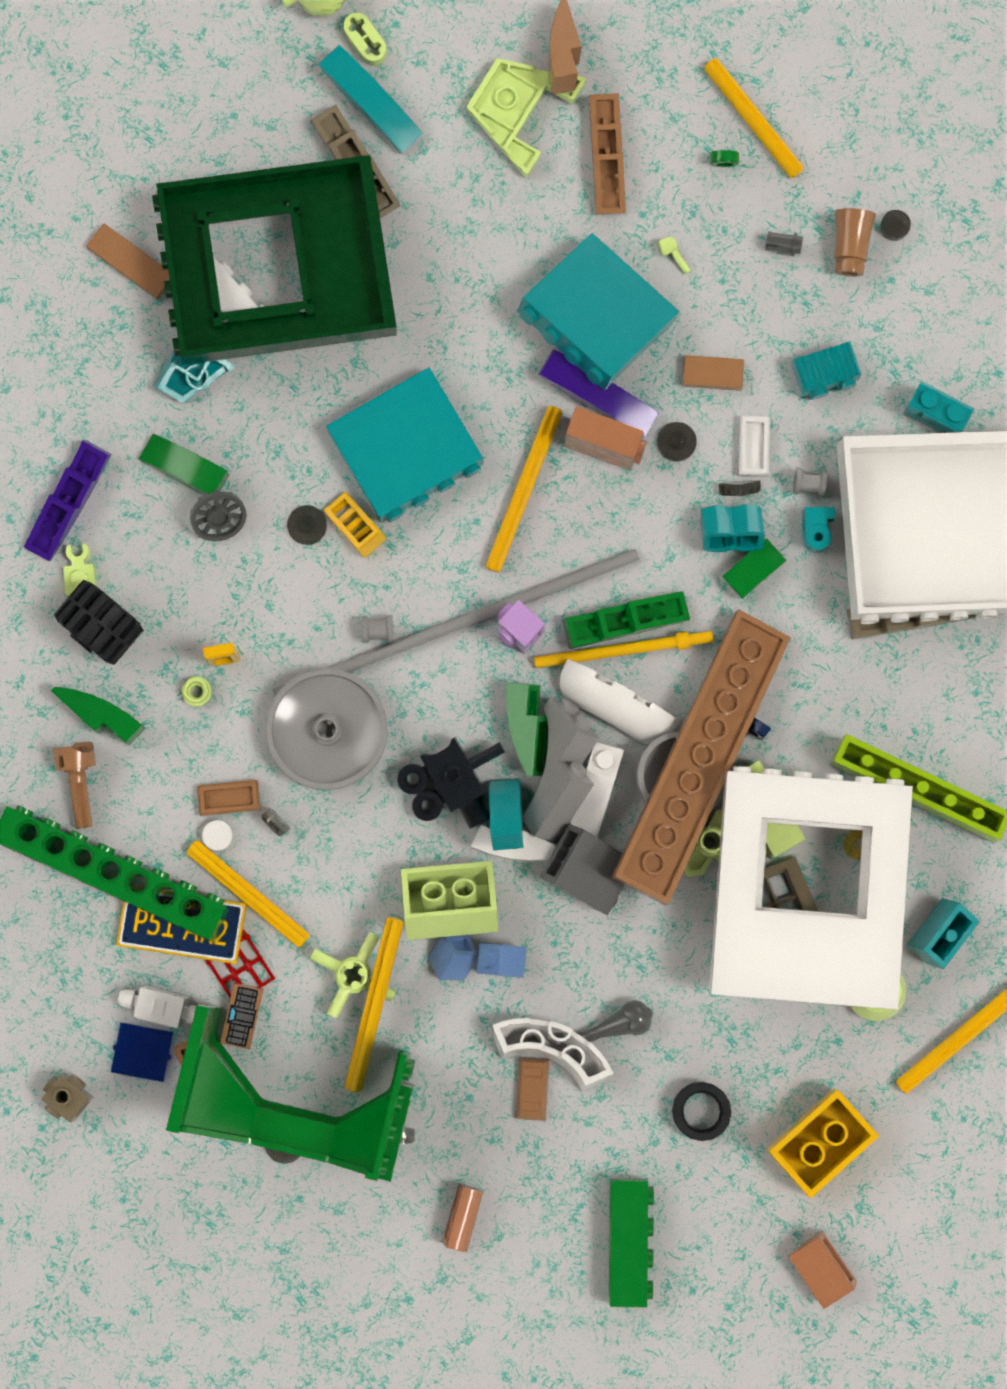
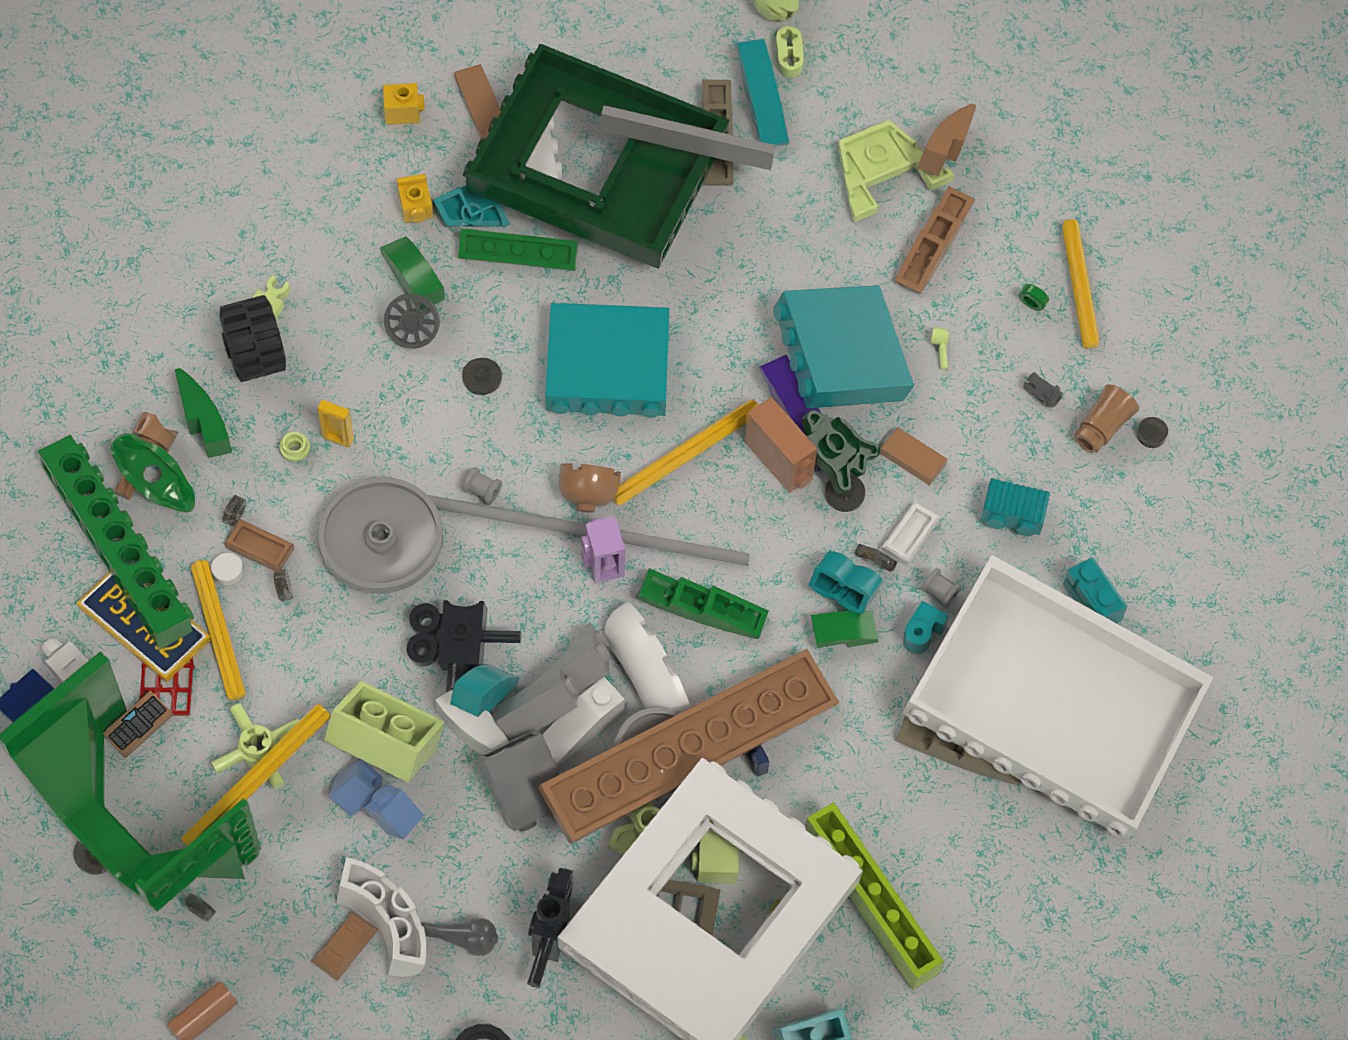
camera: 30 degrees right, 20 degrees down
(64, 307) = (402, 103): none -> yellow brick
(67, 500) = (297, 245): dark purple slope -> none
(123, 802) = (132, 459): none -> green piece
(129, 386) = (414, 198): none -> yellow brick
(188, 782) = (234, 510): none -> clear smoke tile
(259, 387) = (518, 249): none -> green hinge
(349, 201) = (687, 137): none -> light grey tile
(368, 537) = (526, 414): yellow slope -> none
(467, 575) = (588, 486): none -> medium nougat cylinder
(527, 728) = (555, 631): slope -> none
(652, 409) = (838, 448): none -> dark green tile
(677, 944) = (549, 922): none -> black piece
(681, 641) = (739, 649): yellow bar -> none

